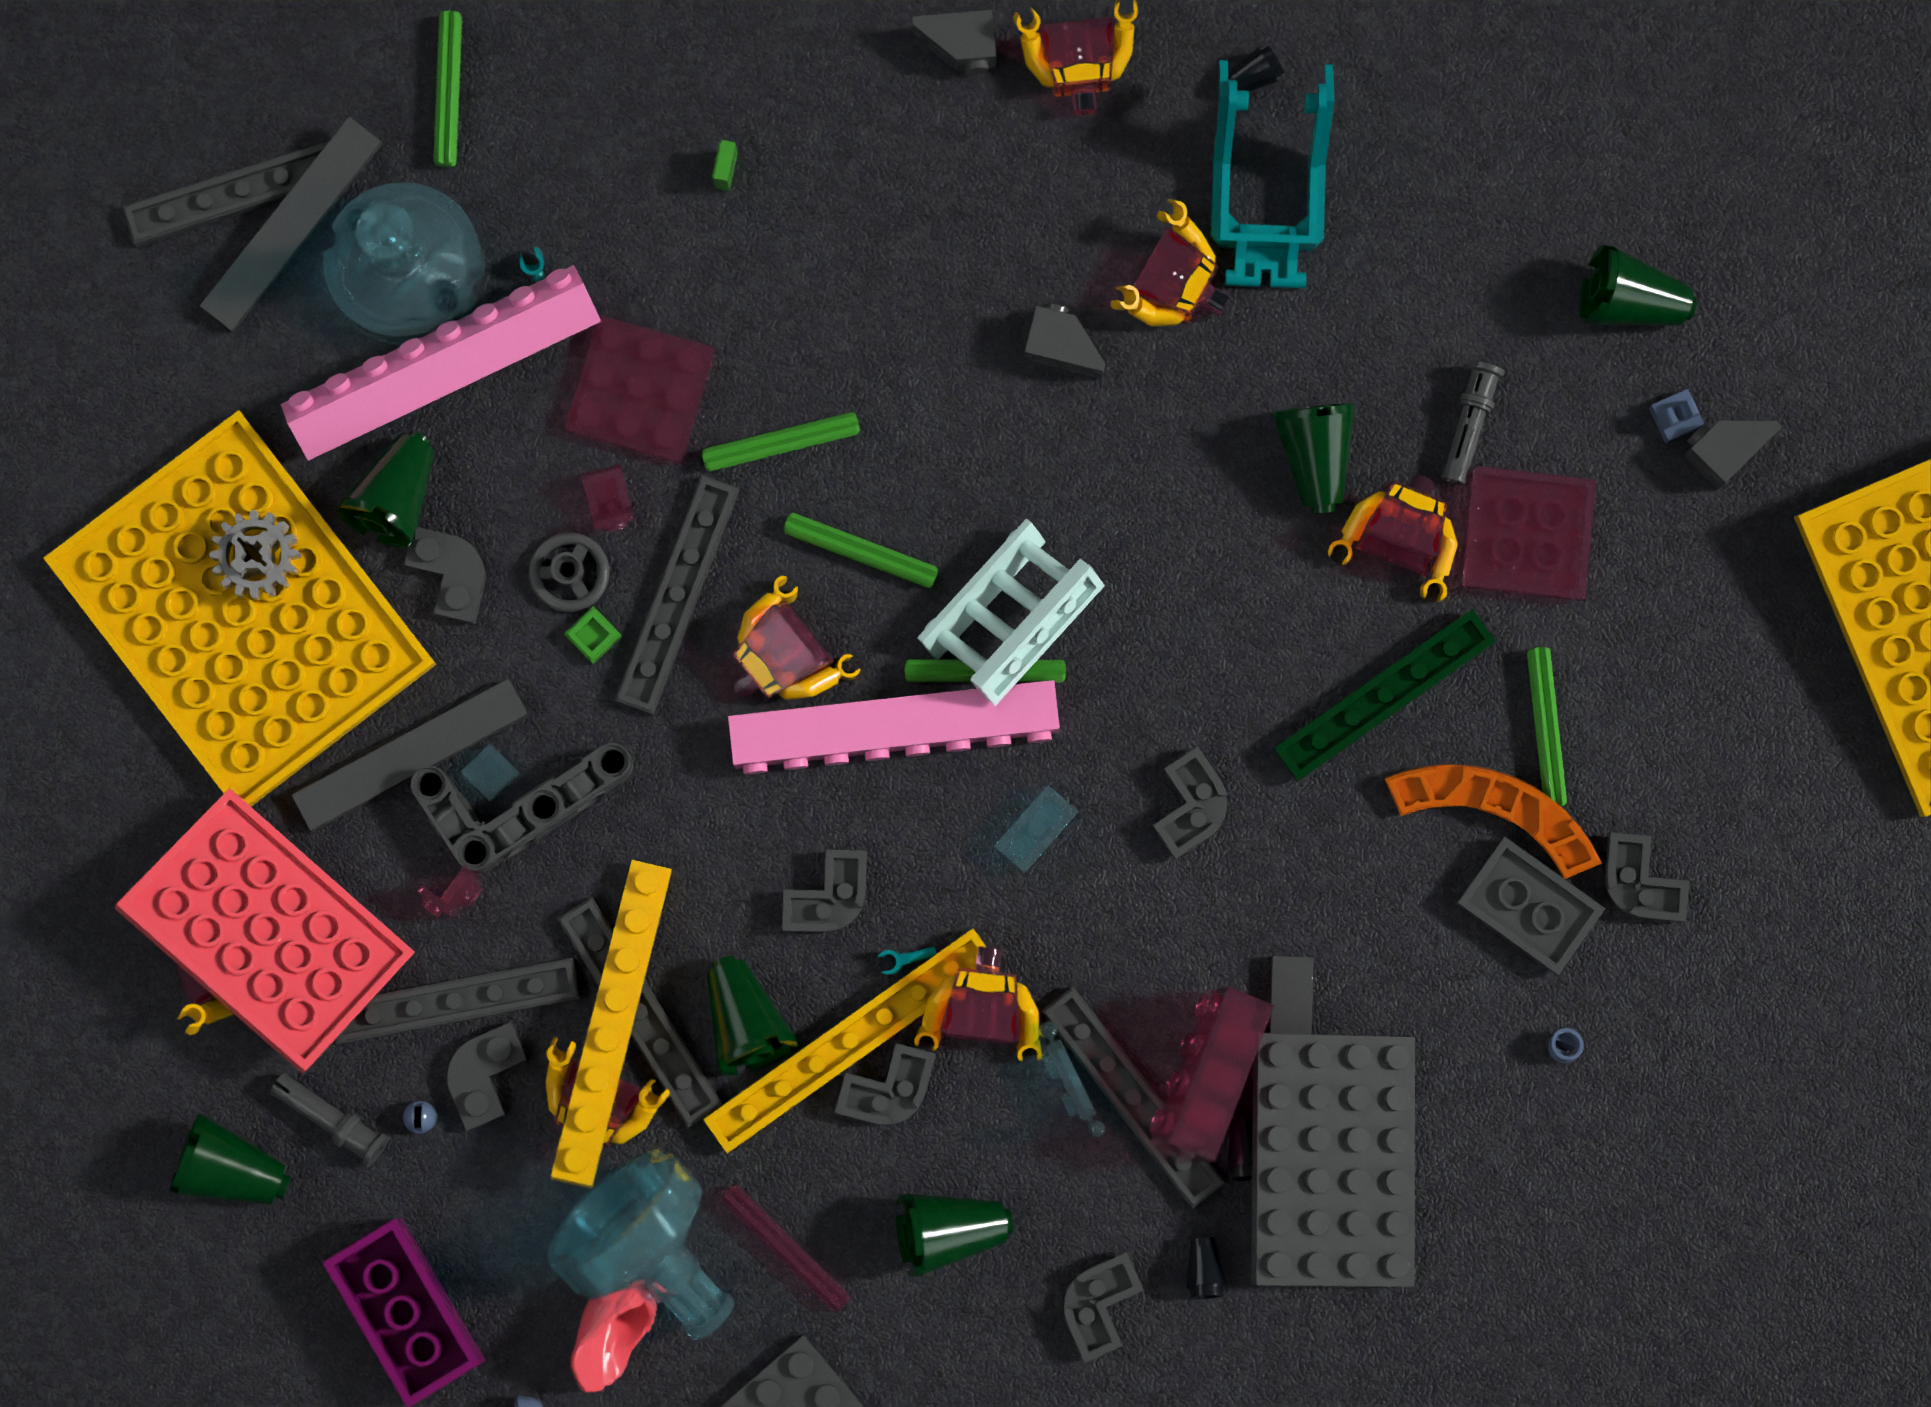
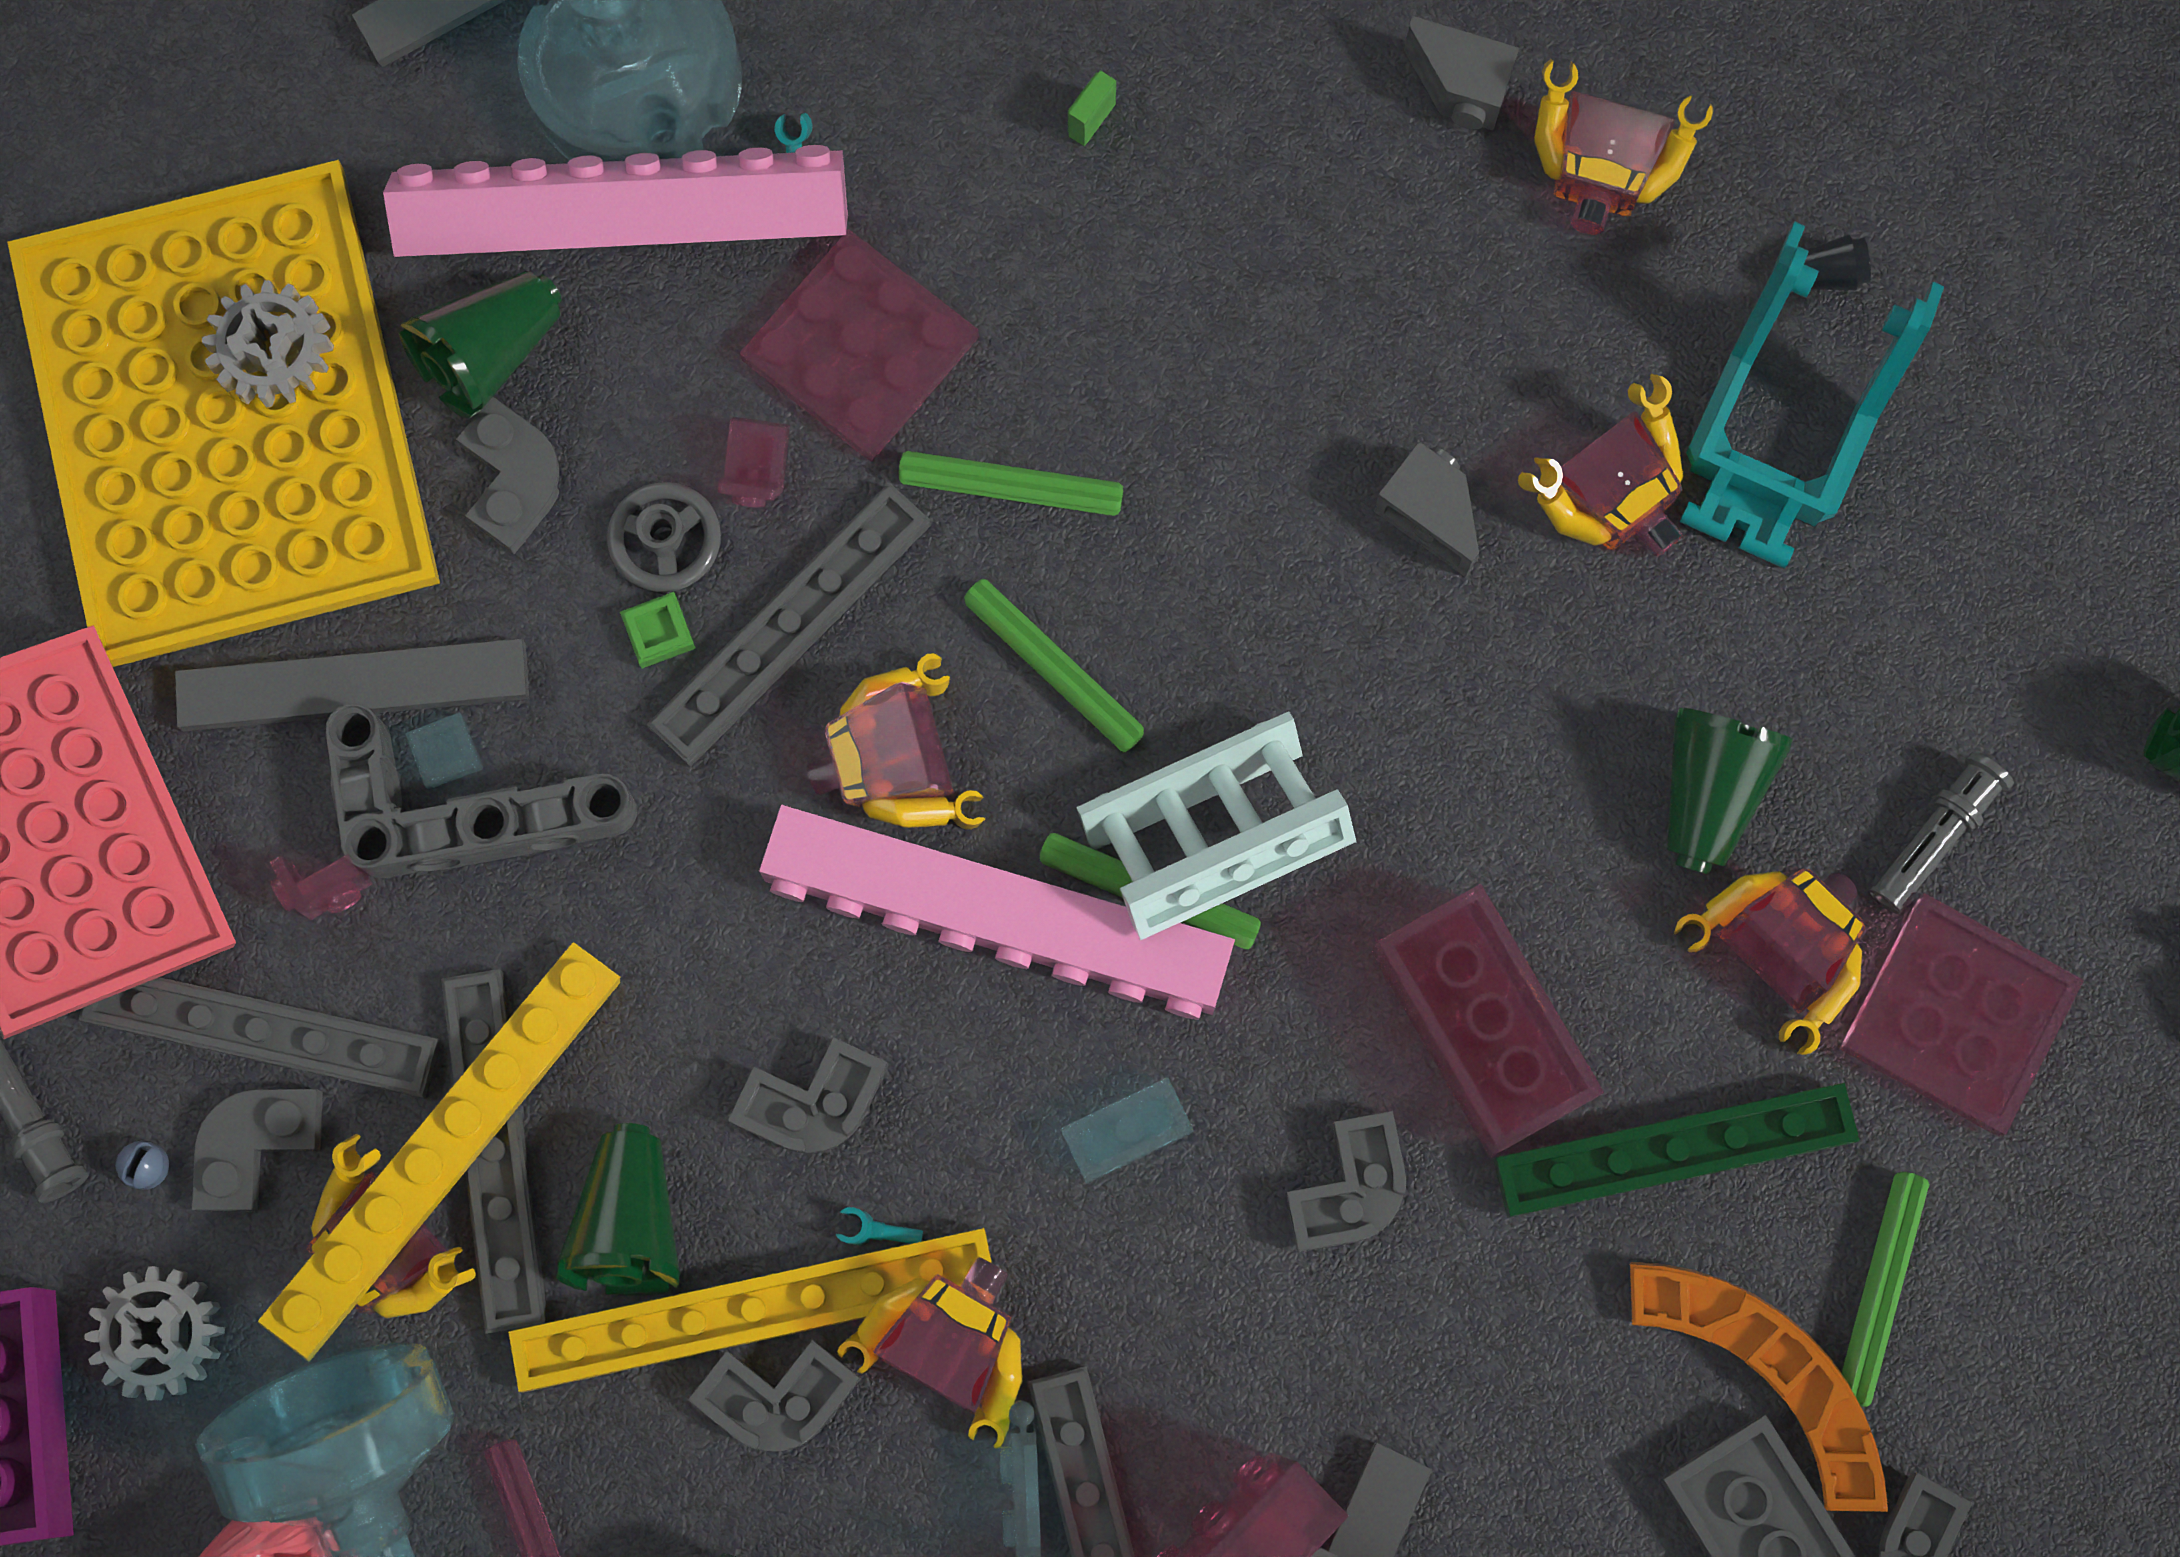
camera: 25 degrees right, 5 degrees down
(474, 1234) = (135, 1352): none -> light grey gear
(1232, 664) = (1486, 1020): none -> clear pink brick

